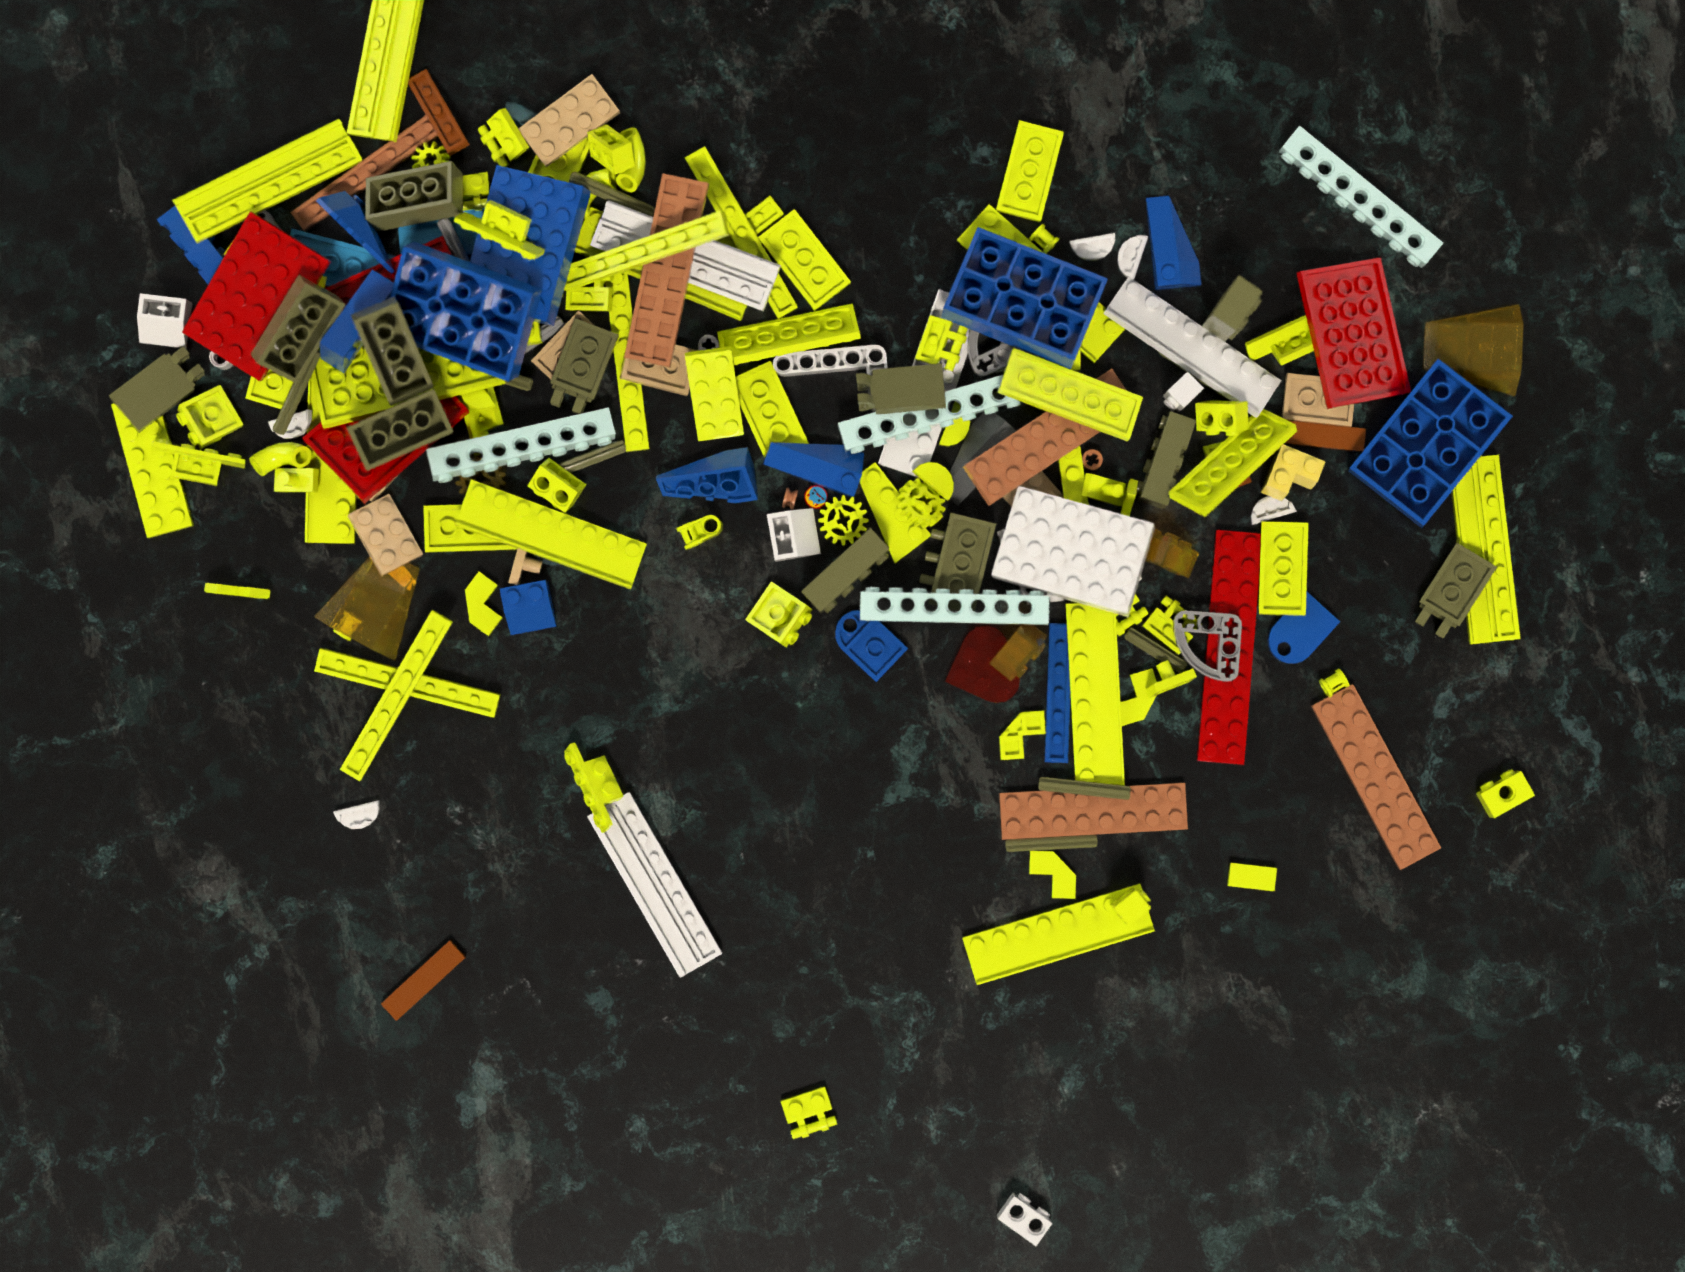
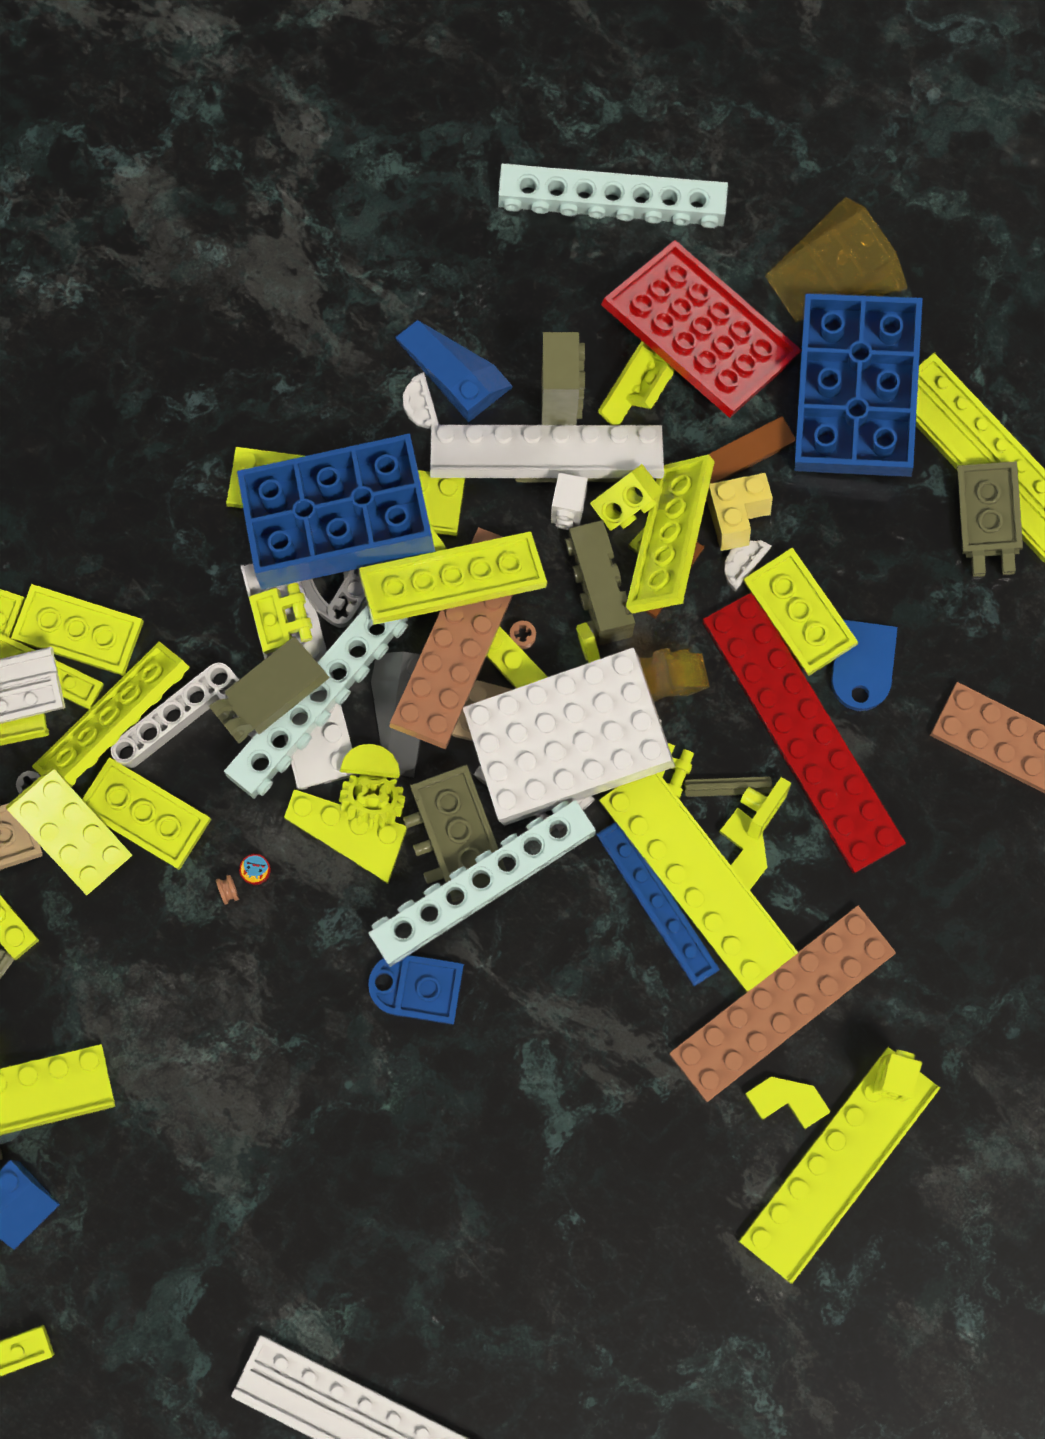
camera: 35 degrees left, 10 degrees down
(596, 784) = (218, 1352): neon yellow bracket -> none
(698, 531) = (150, 992): neon yellow piece -> none
(720, 476) = (134, 917): blue wedge -> none
(779, 615) = (299, 1022): neon yellow plate -> none
(793, 534) = (256, 924): white slope -> none
(819, 464) = (233, 832): blue wedge -> none
(845, 571) = (339, 924): olive brick -> none
(855, 515) = (292, 885): neon yellow gear -> none
(956, 432) = (359, 701): neon yellow tile -> none
(972, 667) = (558, 929): clear red plate -> none
(1012, 738) = (641, 985): neon yellow tile -> none
(1022, 646) = (583, 883): clear yellow brick -> none
(1029, 171) = (256, 387): neon yellow plate -> none
(1044, 238) = (316, 443): neon yellow bush -> none
(1051, 843) = (762, 1069): olive axle -> none
(1084, 788) = (756, 983): olive axle -> none
(1093, 247) = (375, 420): white tile -> none
(1103, 489) = (556, 655): neon yellow tile -> none
(1161, 624) = (725, 756): neon yellow plate -> none
(1218, 628) = (777, 718): light grey beam -> none
(1252, 876) = (999, 957): neon yellow tile -> none
(1306, 402) = (703, 427): tan plate -> none
(1334, 683) = (937, 694): neon yellow bush -> none

